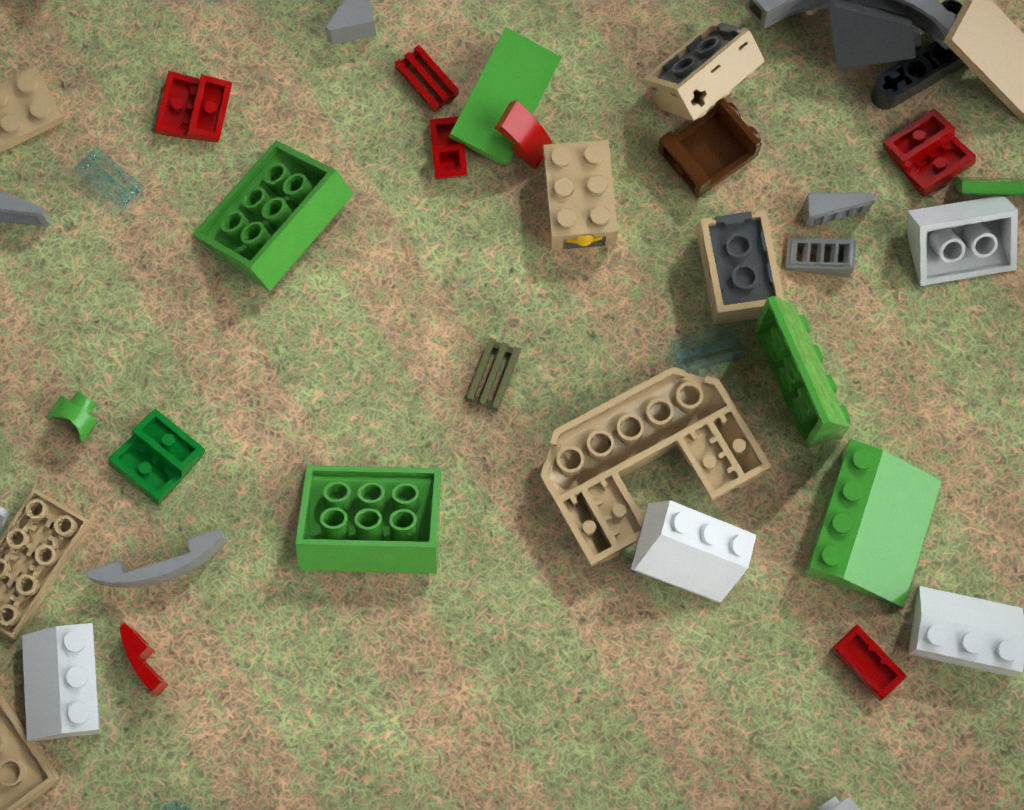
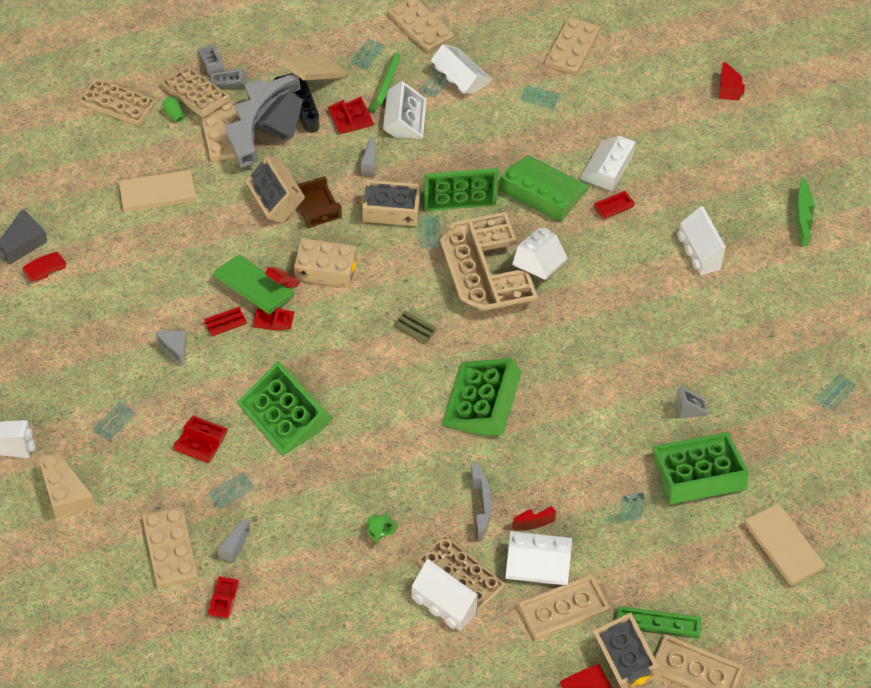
camera: 80 degrees left, 20 degrees down
(156, 456) = (415, 495): green slope -> none
(830, 268) = (397, 161): light grey slope -> none

